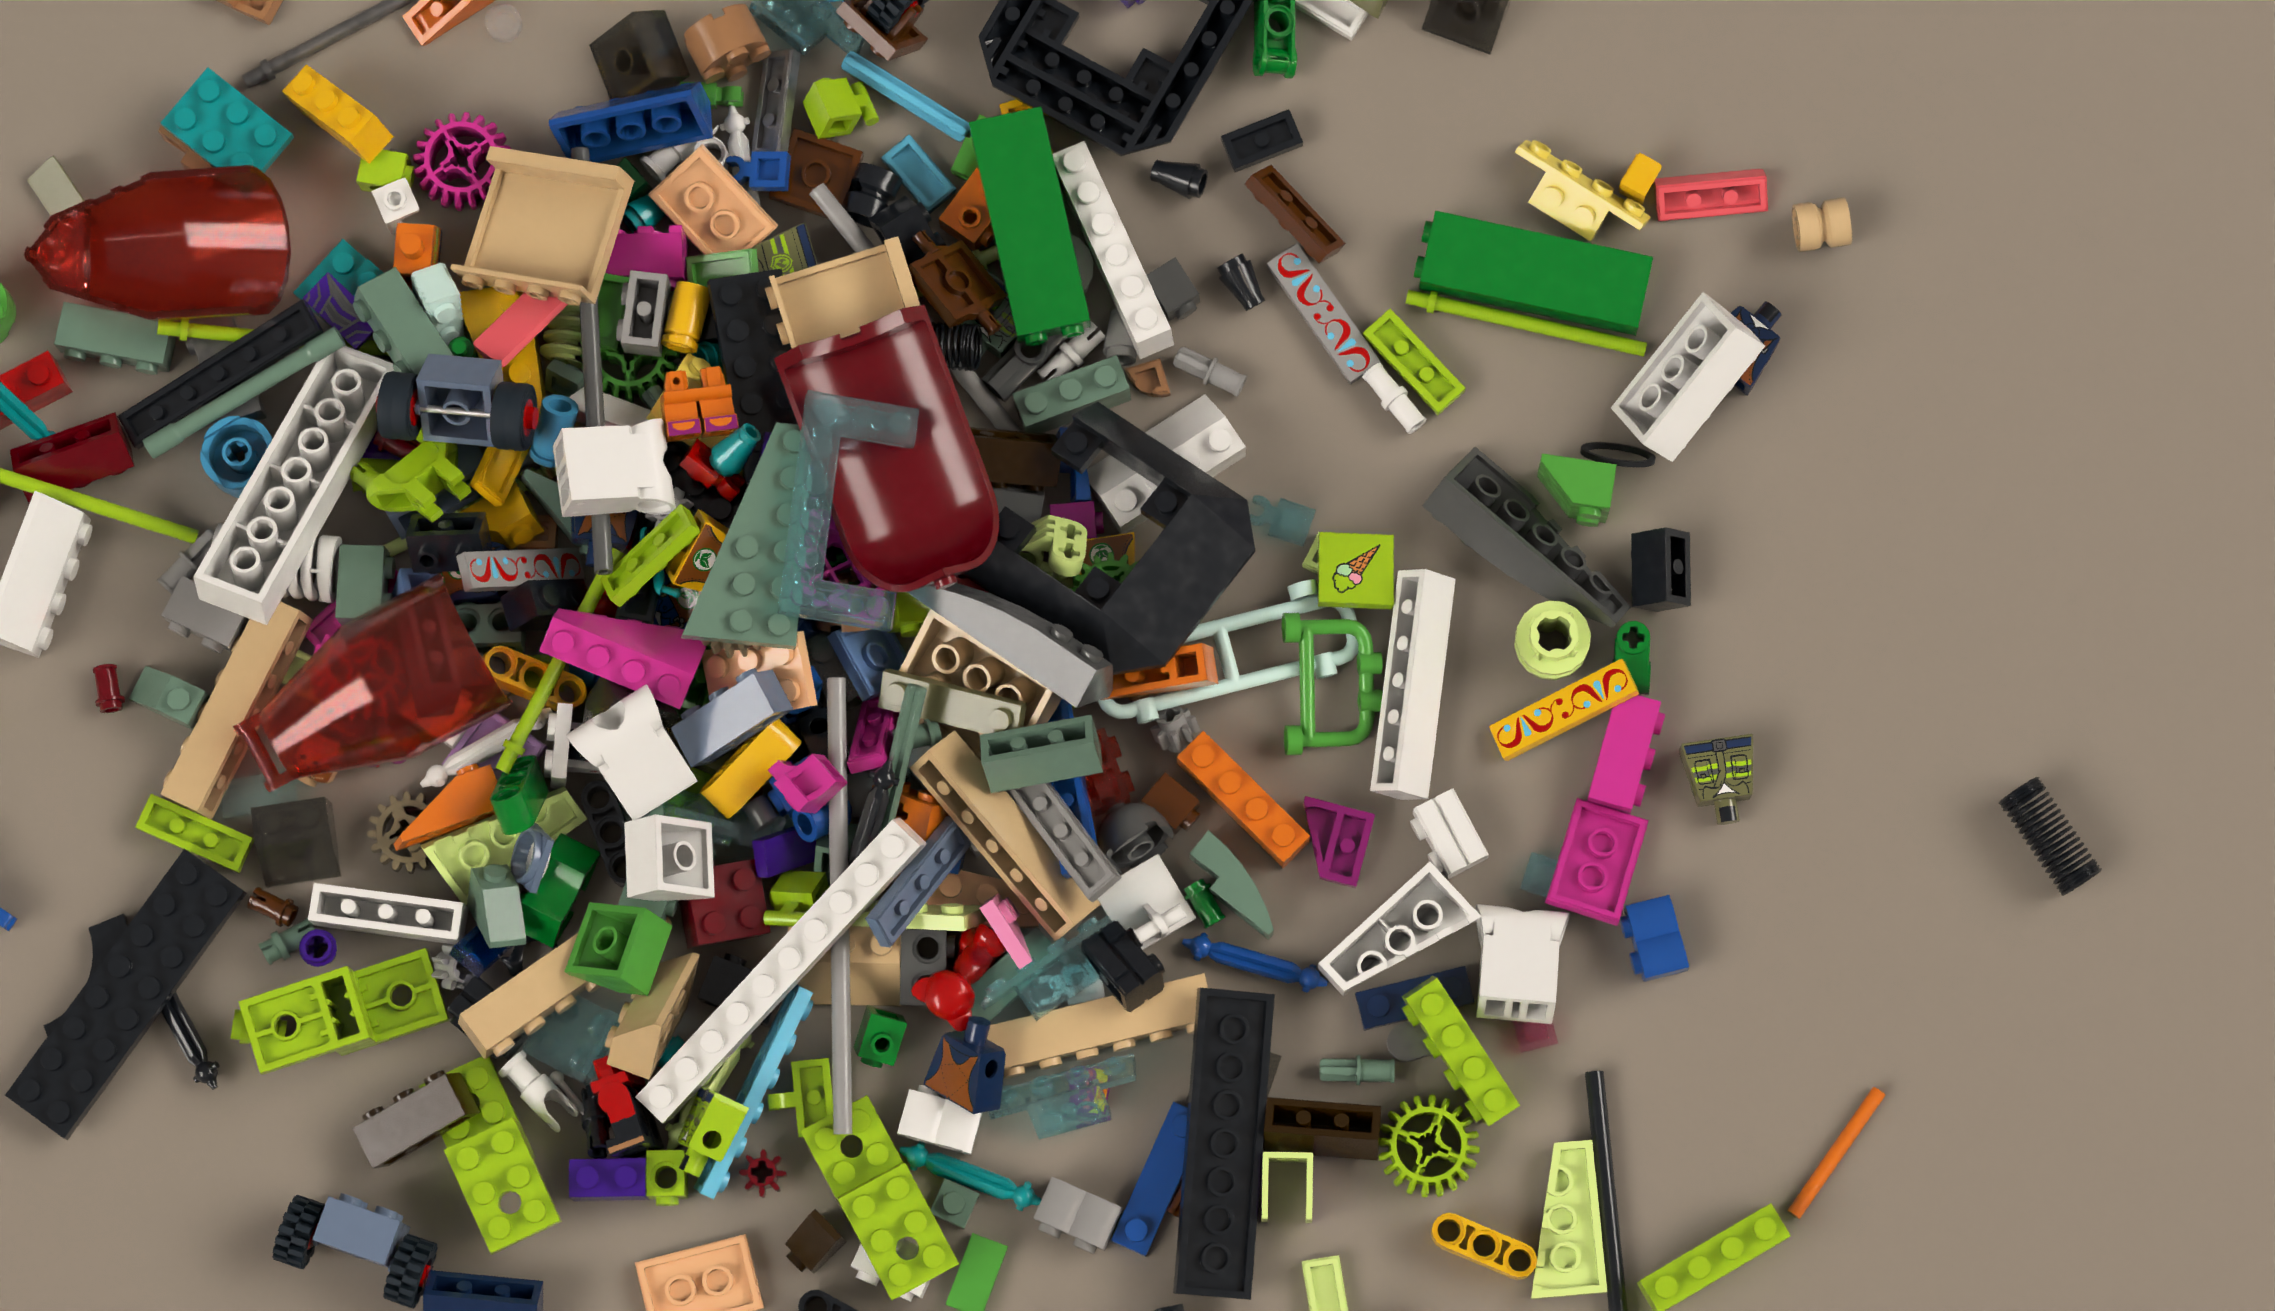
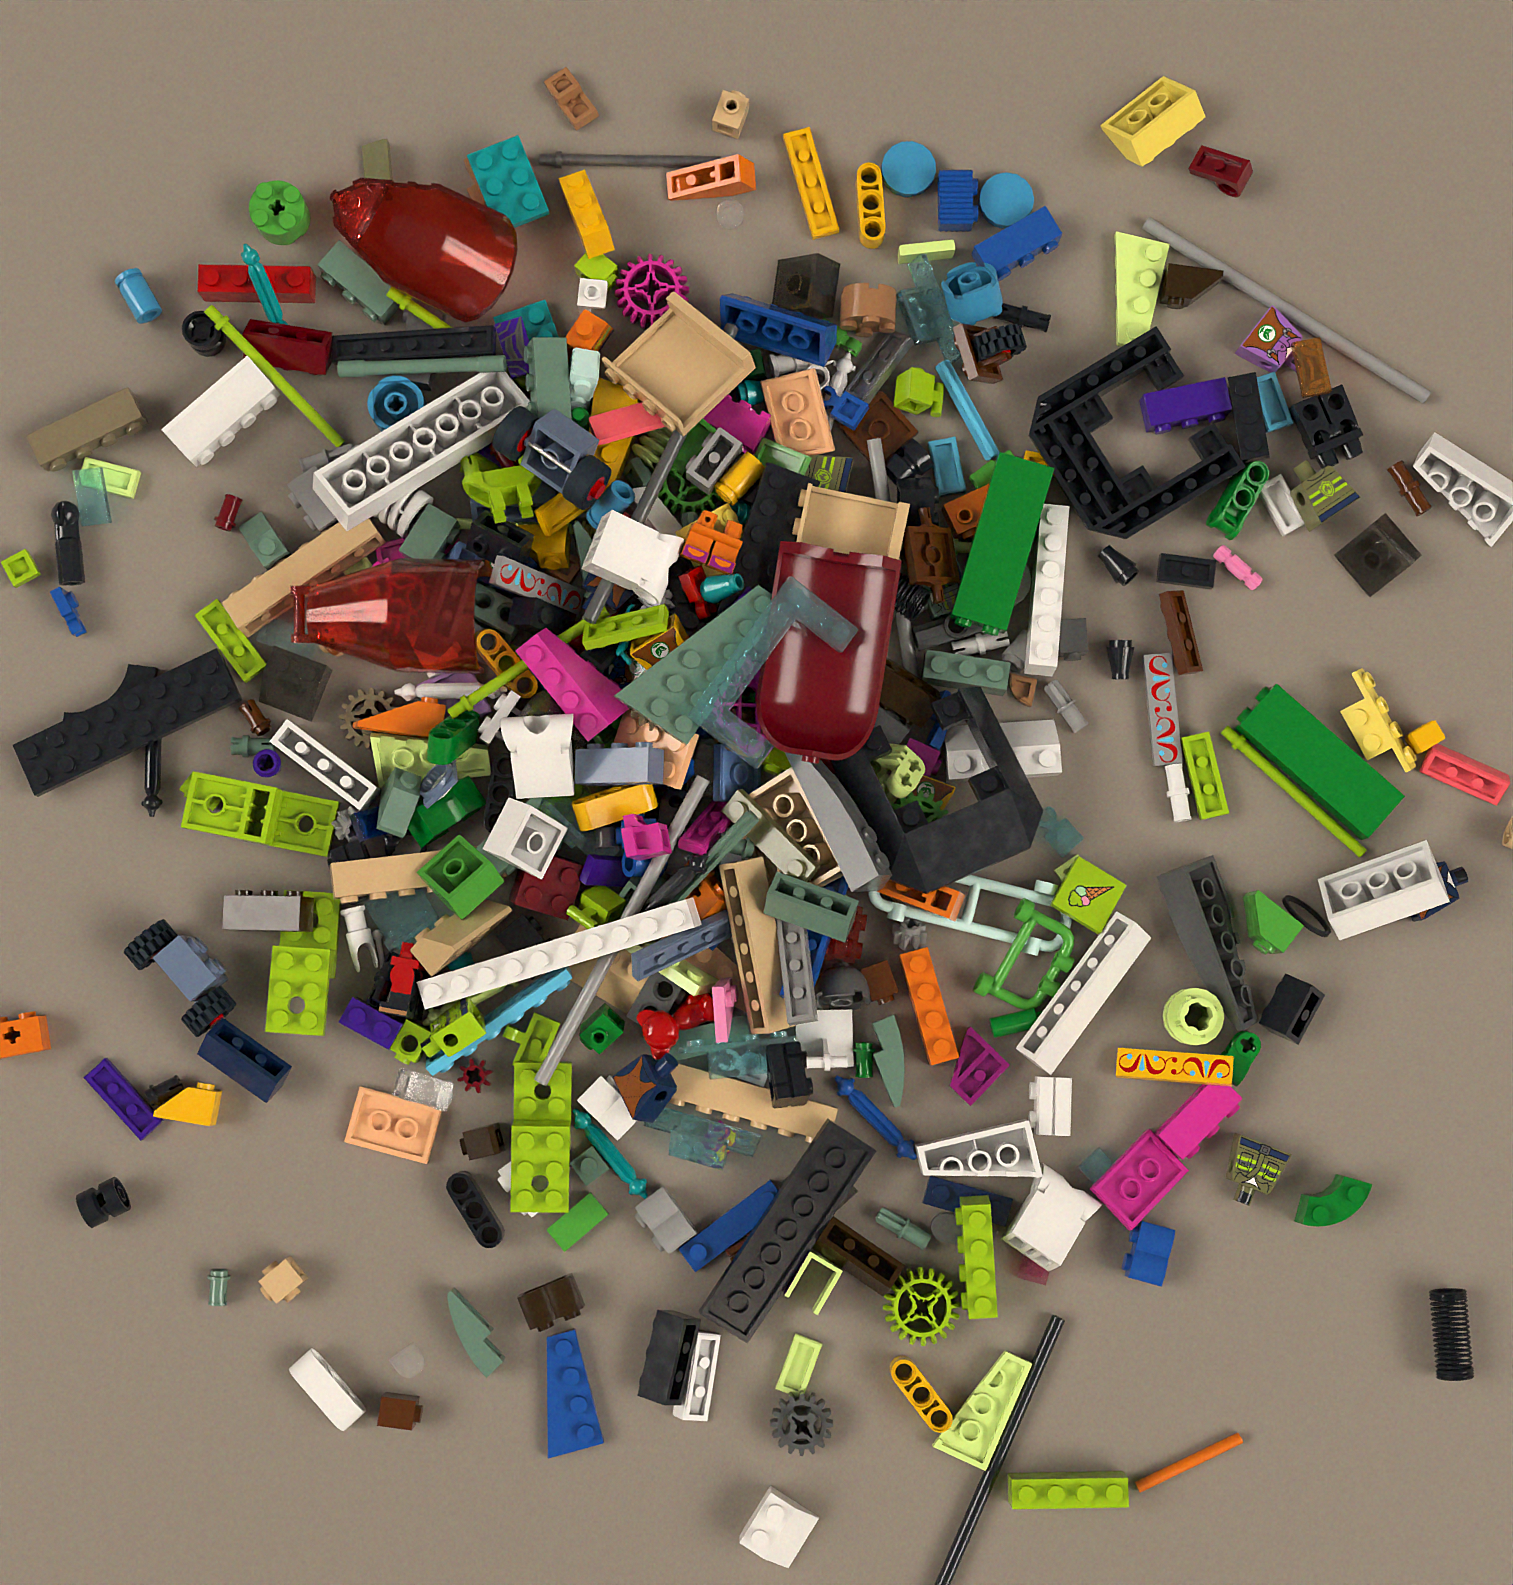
camera: 20 degrees right, 5 degrees up
(711, 1220) = (423, 1089): none -> clear brick
(1319, 104) = (1237, 567): none -> bright pink axle
(1351, 765) = (1013, 1022): none -> green cylinder
(1835, 763) = (1334, 1203): none -> green brick

